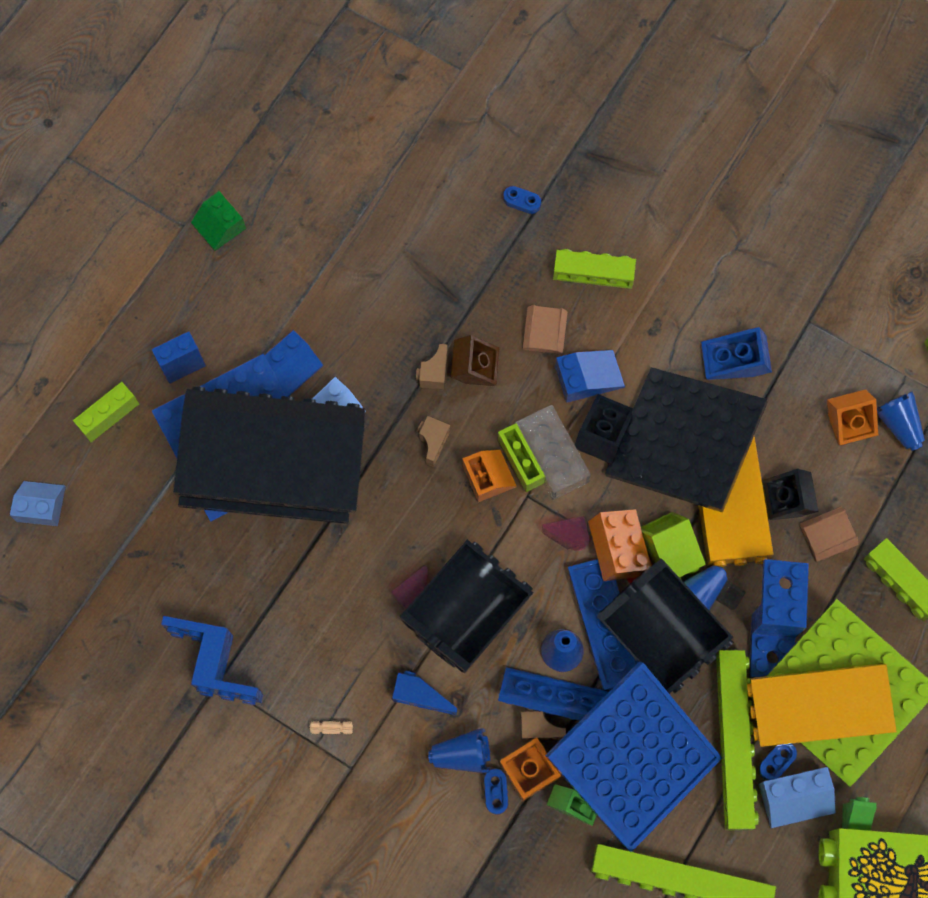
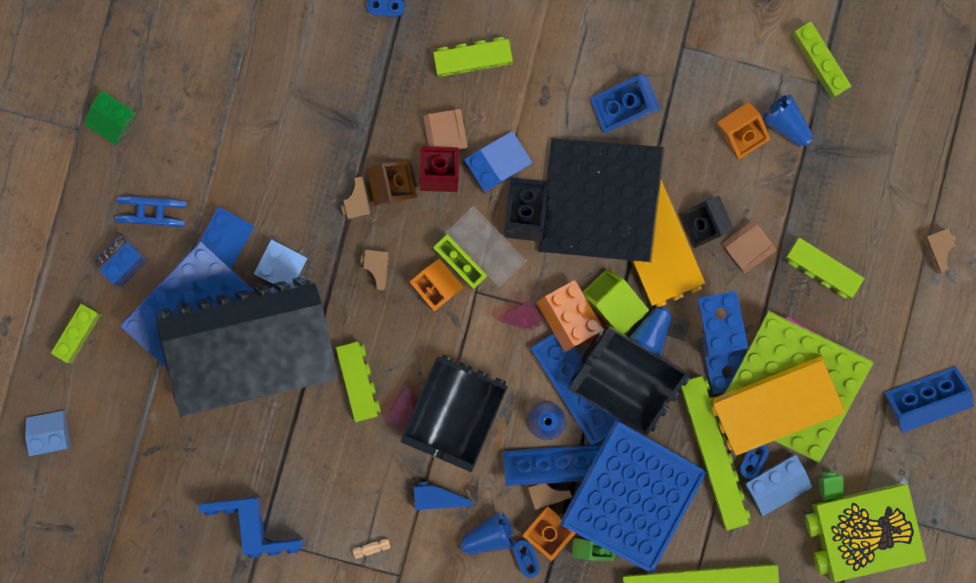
camera: 20 degrees left, 15 degrees up
(231, 328) = (159, 220): none -> blue piece
(375, 545) = (357, 381): none -> lime brick
(527, 362) = (439, 169): none -> dark red slope

